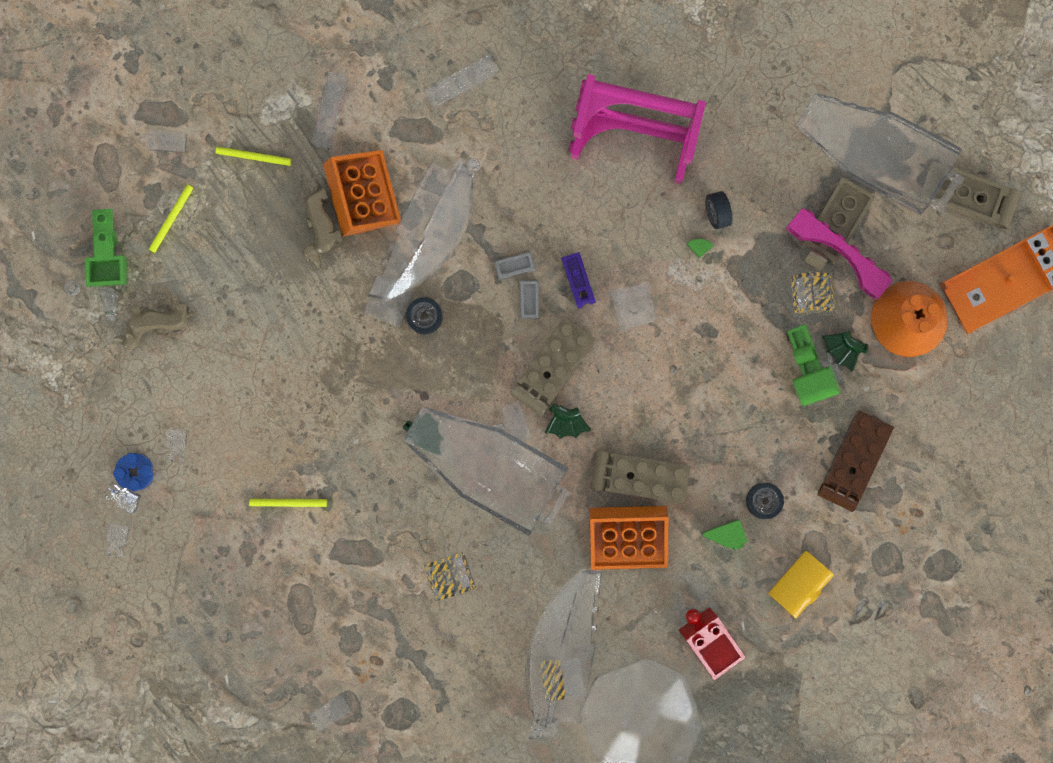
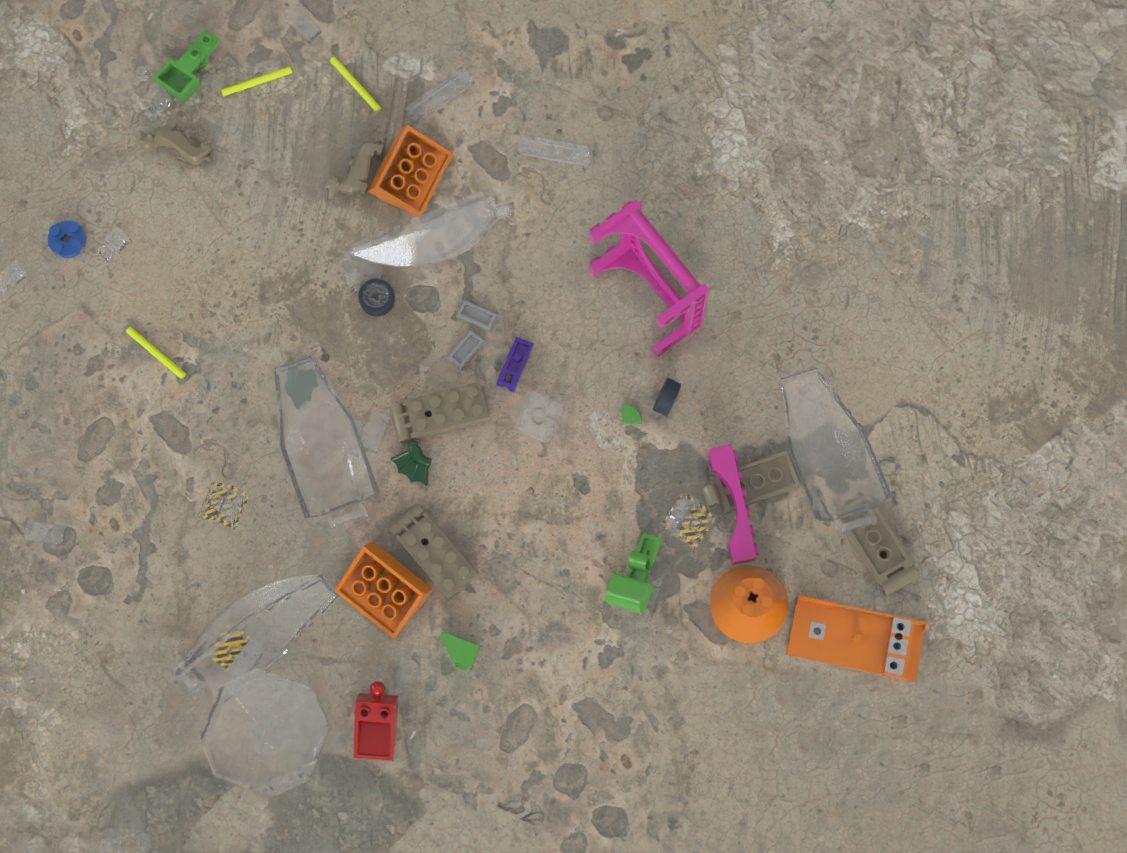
camera: 40 degrees right, 10 degrees down
(125, 498) = (43, 252): clear plate -> none
(774, 497) = (503, 645): wheel -> none
(801, 584) = (484, 739): yellow panel -> none
(845, 348) = (678, 585): dark green arm -> none
(861, 451) = (621, 675): reddish brown hinge -> none

